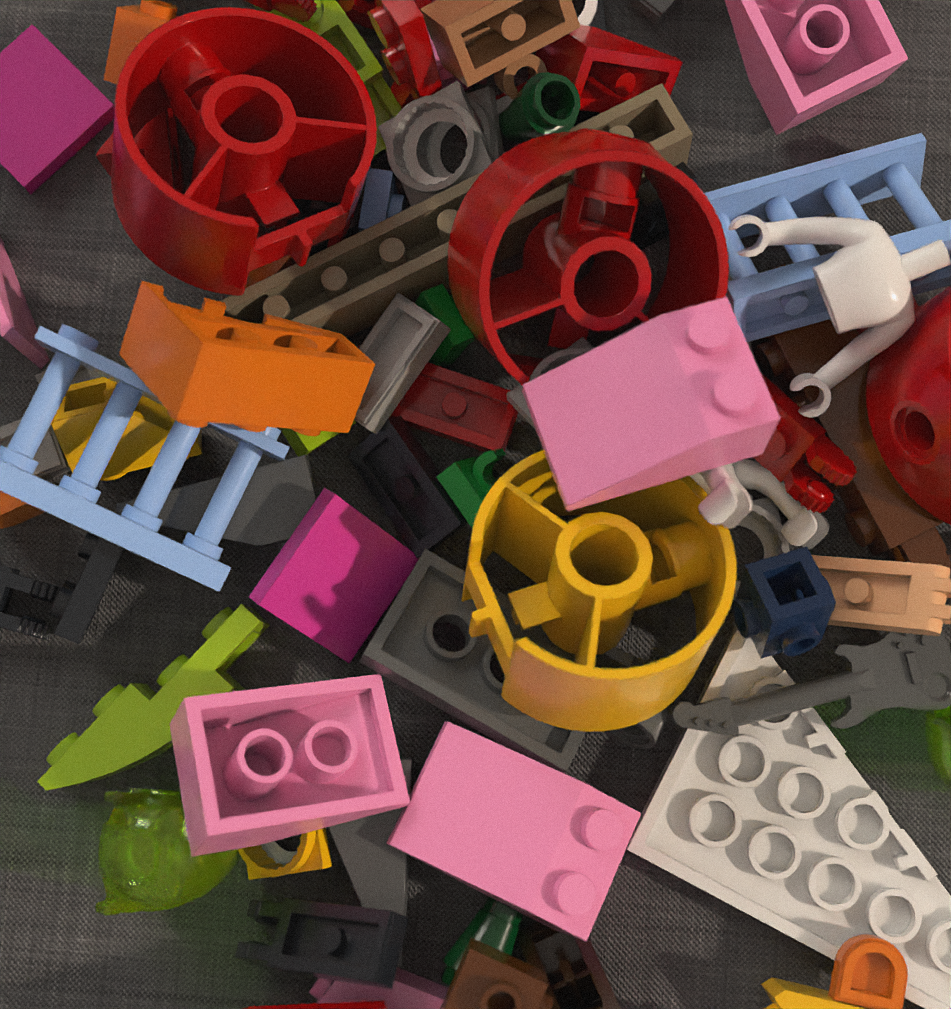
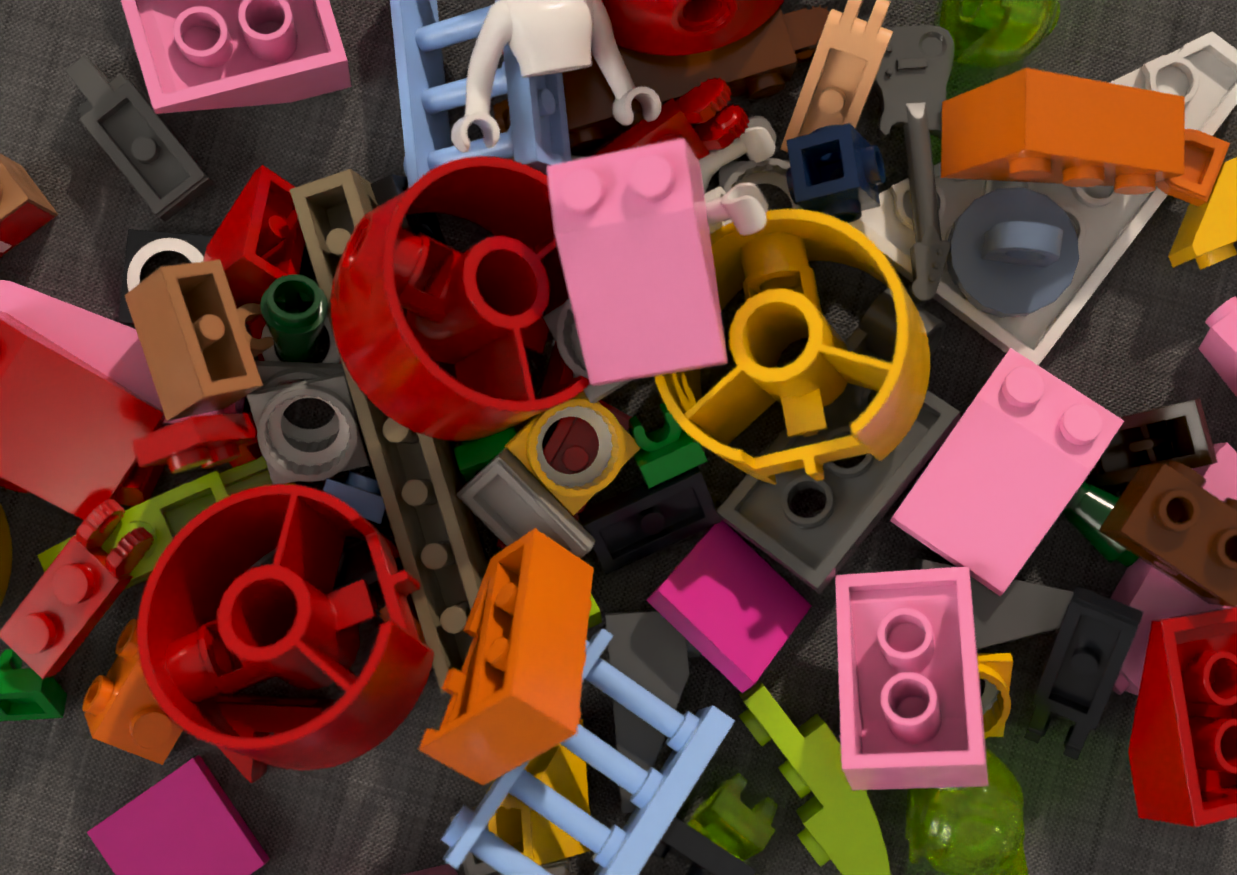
camera: 80 degrees left, 5 degrees up
(121, 617) = (732, 823): none -> clear neon green tile
(422, 401) = (575, 490): none -> yellow piece
(741, 803) = (1012, 252): none -> sand blue tile
(873, 833) = (1063, 133): none -> orange wedge

